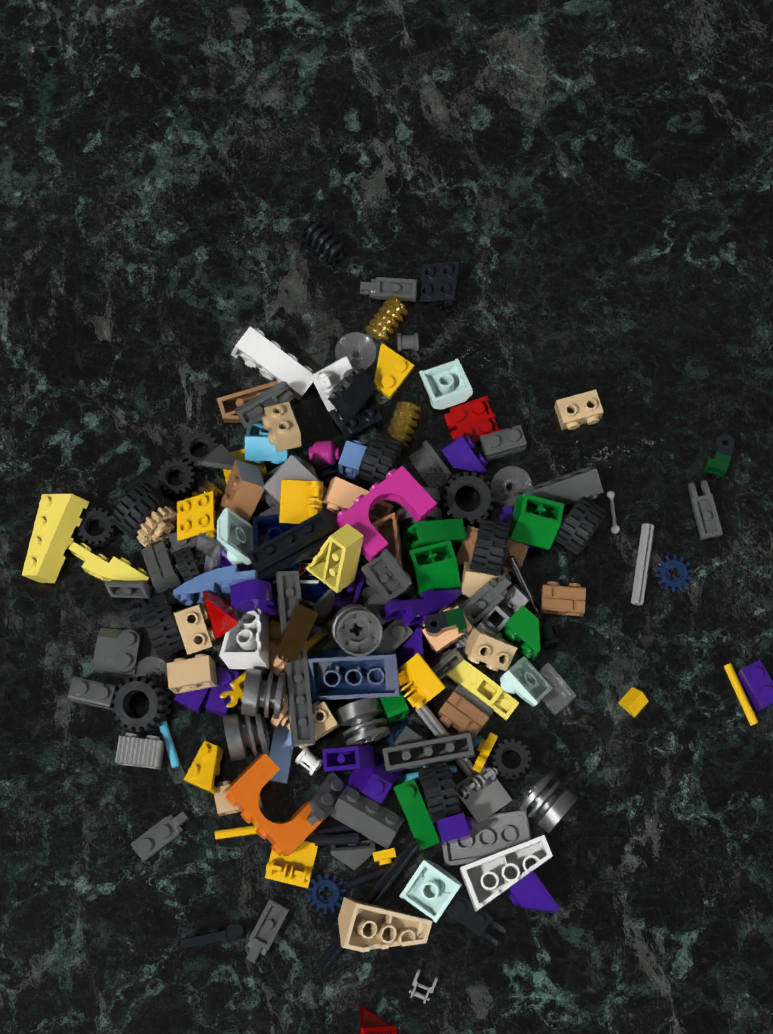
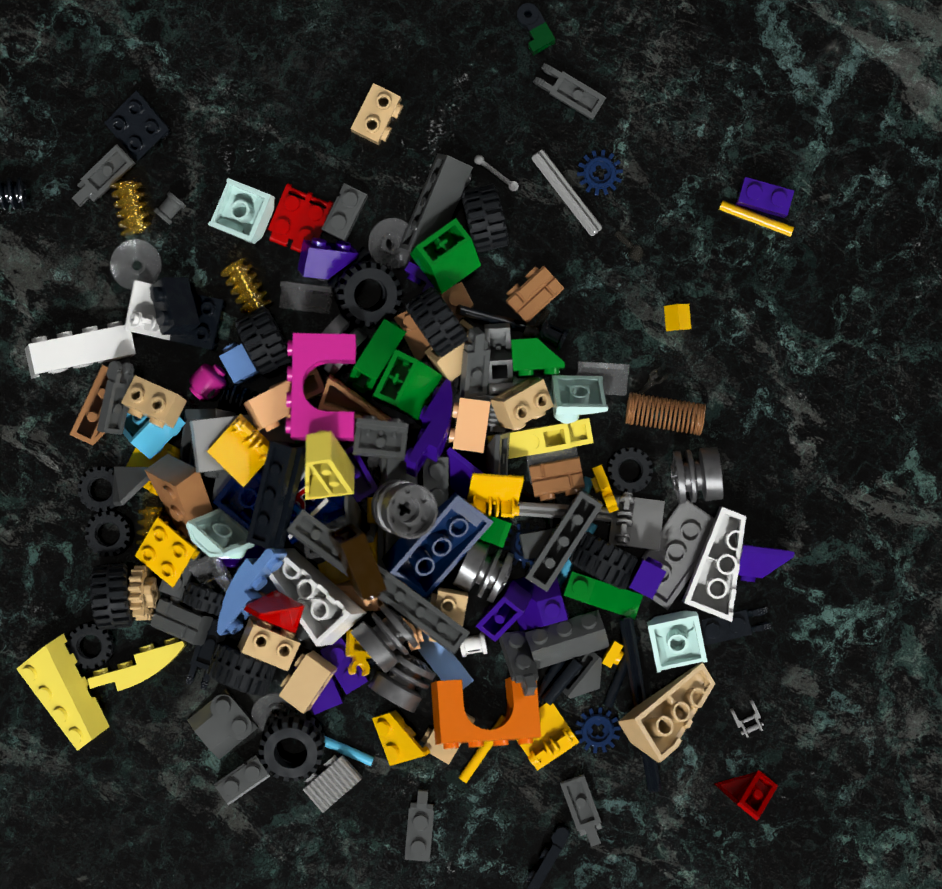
camera: 45 degrees left, 15 degrees up
(128, 589) = (177, 666): dark grey slope -> none
(253, 595) = (289, 569): dark purple brick -> none
(391, 371) = (182, 248): yellow wing -> none
(445, 621) = (460, 433): leg -> none
(549, 725) = (697, 416): none -> medium nougat piece

